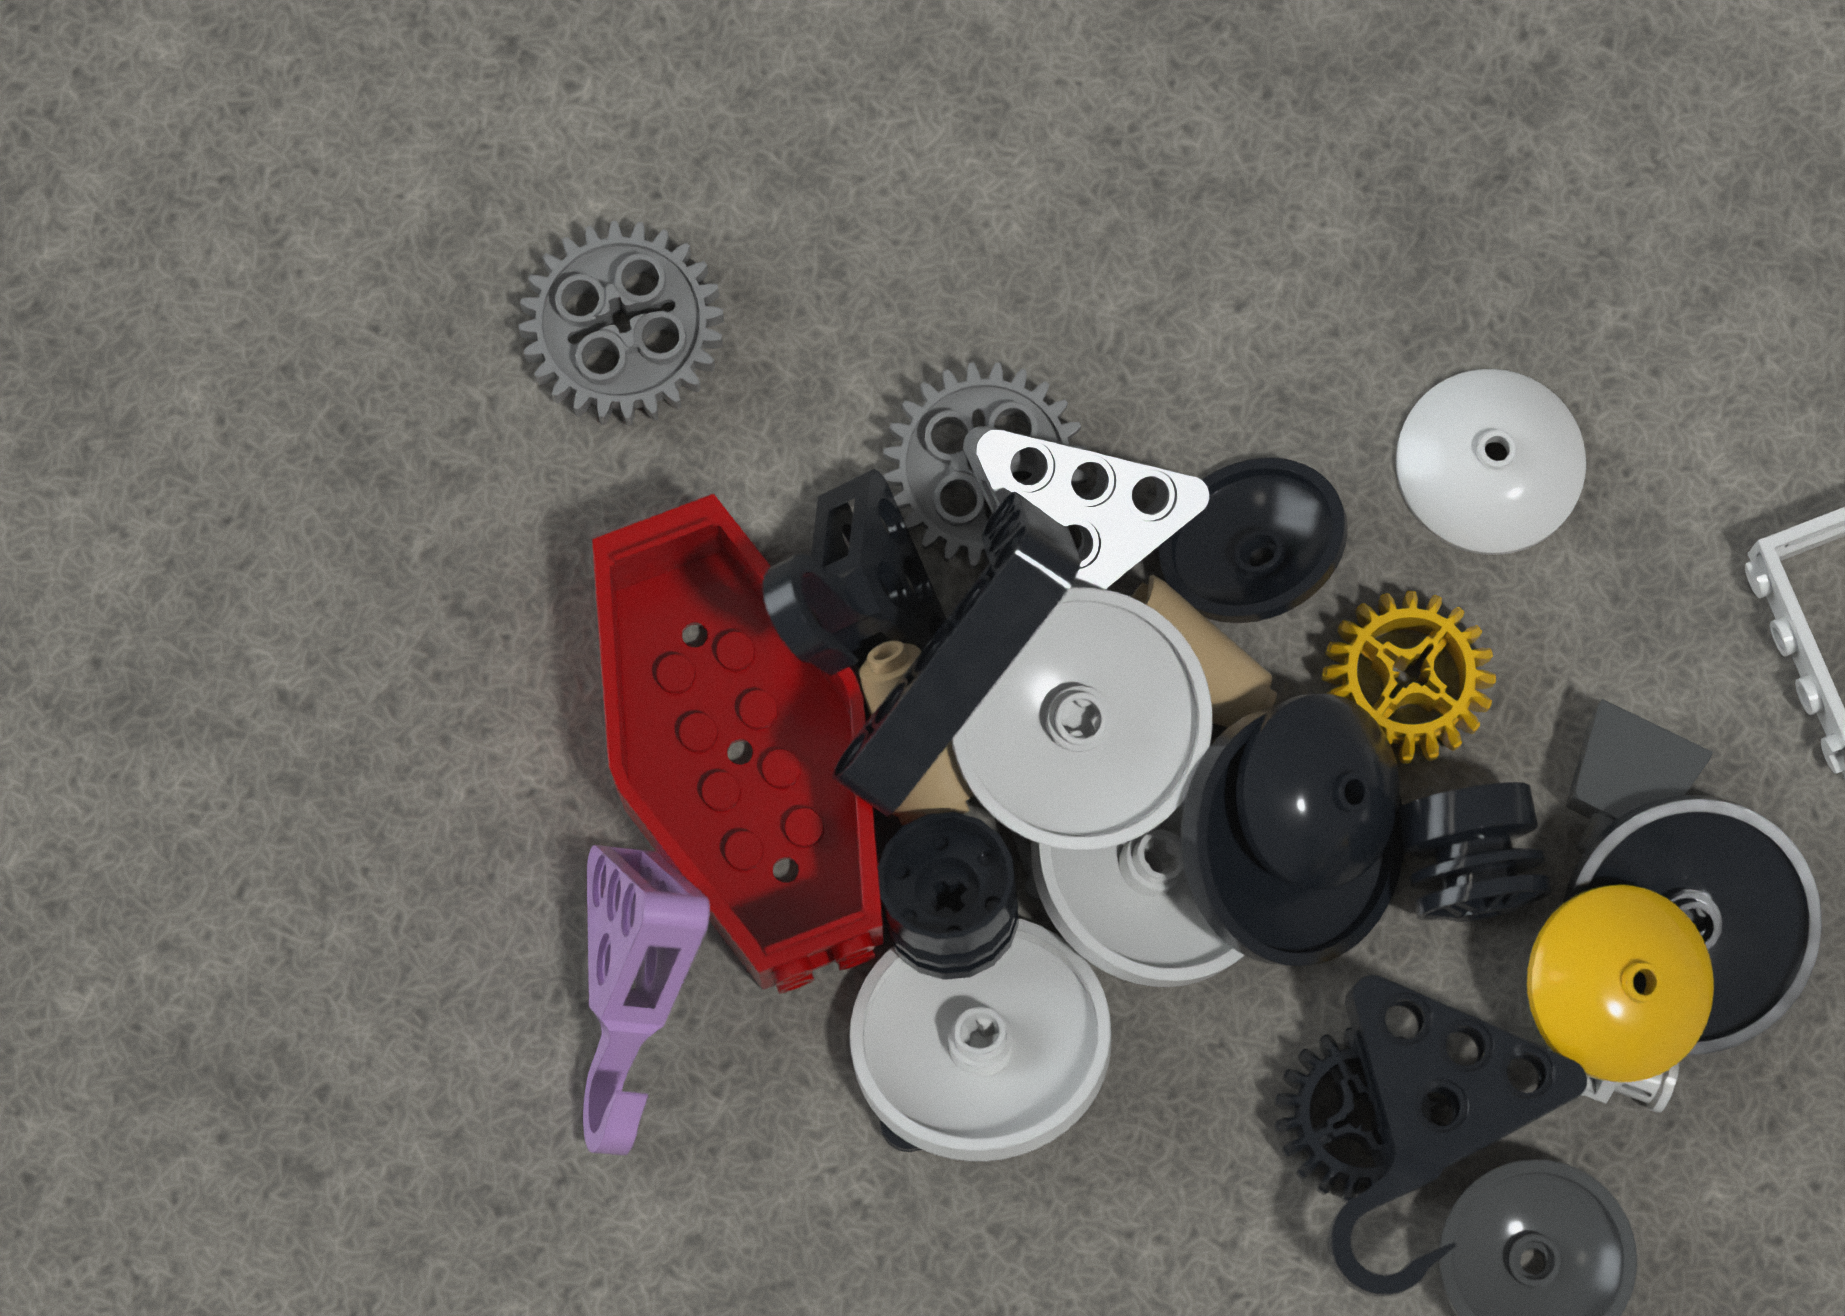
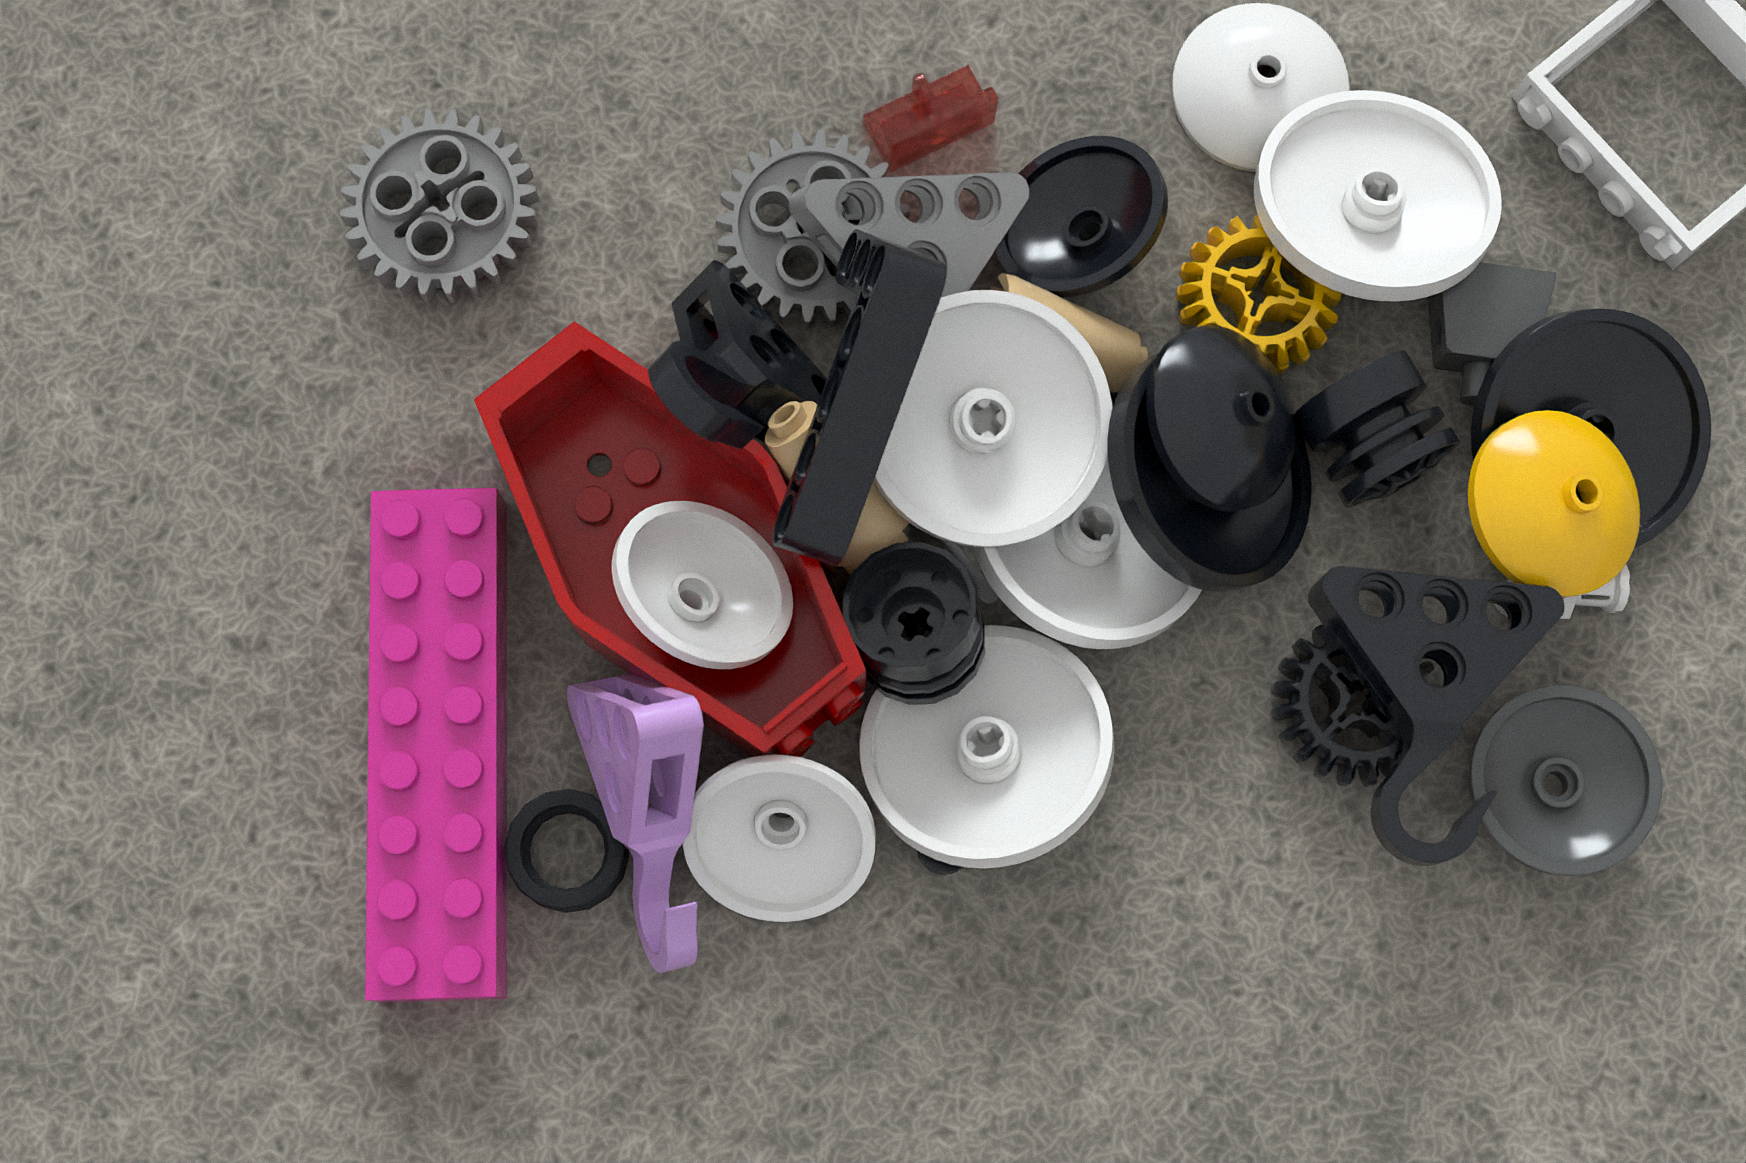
camera: 20 degrees left, 0 degrees up
(449, 861) = (437, 747): none -> dark pink brick
(492, 995) = (519, 858): none -> black tyre
(741, 1087) = (772, 863): none -> white dish
(772, 774) = (702, 585): none -> white dish
(1141, 387) = (930, 117): none -> clear red panel
(1558, 615) = (1377, 195): none -> white dish

